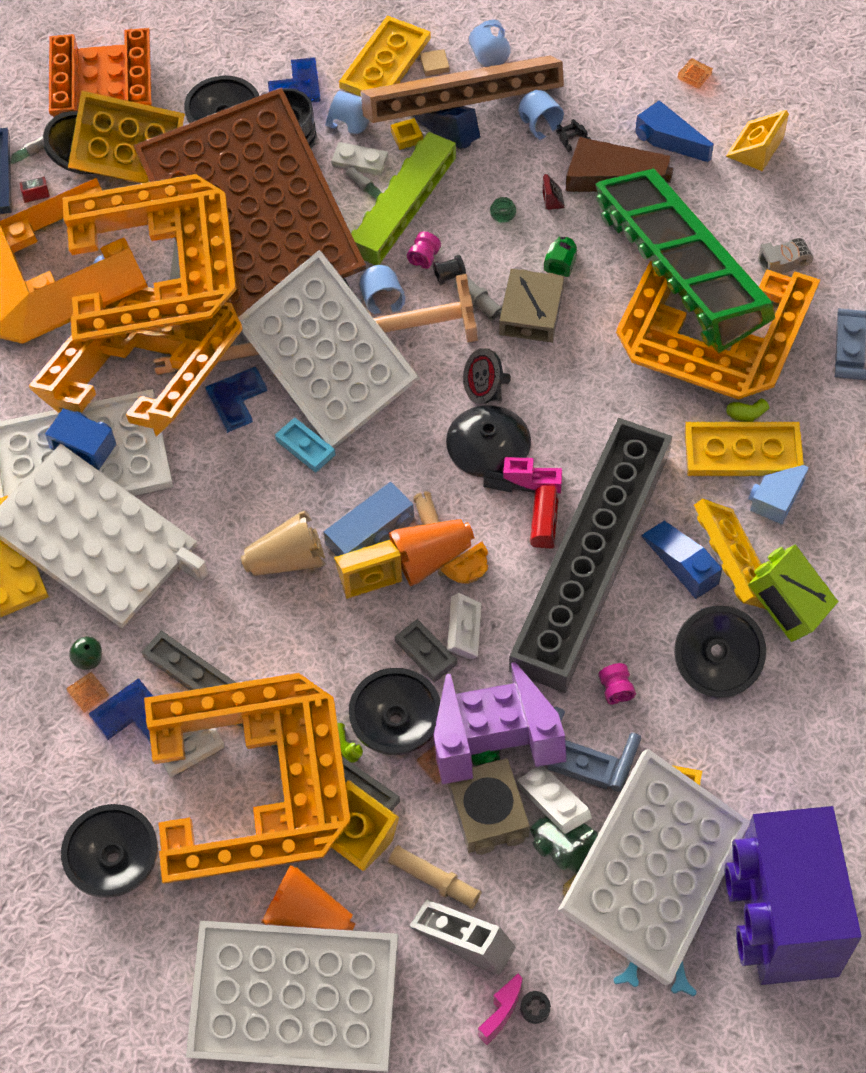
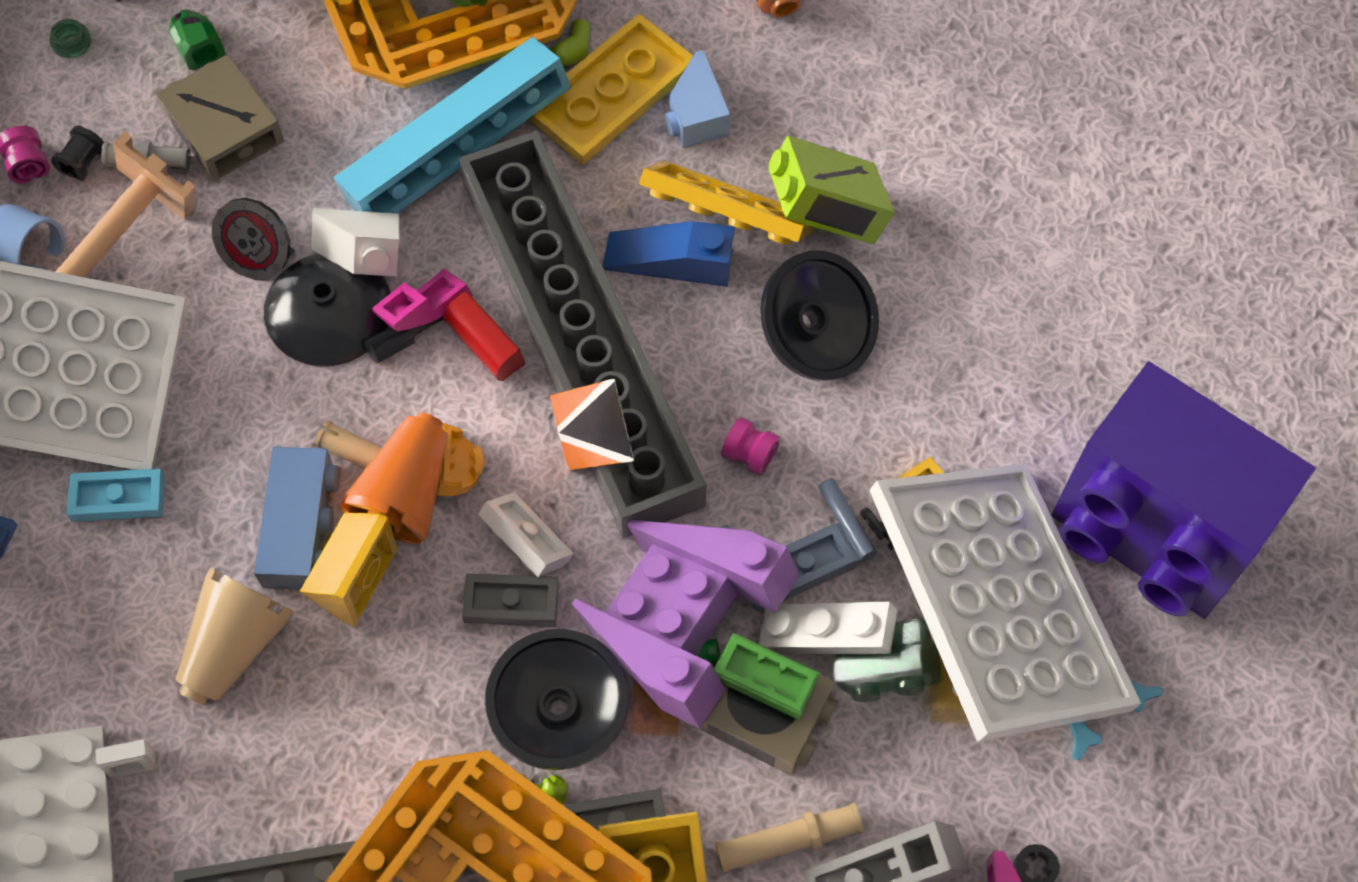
camera: 50 degrees left, 5 degrees up
(497, 789) = (766, 676): none -> bright green plate
(532, 419) = (357, 240): none -> white slope
(536, 597) = (592, 426): none -> sticker
(636, 402) = (456, 126): none -> medium azure brick

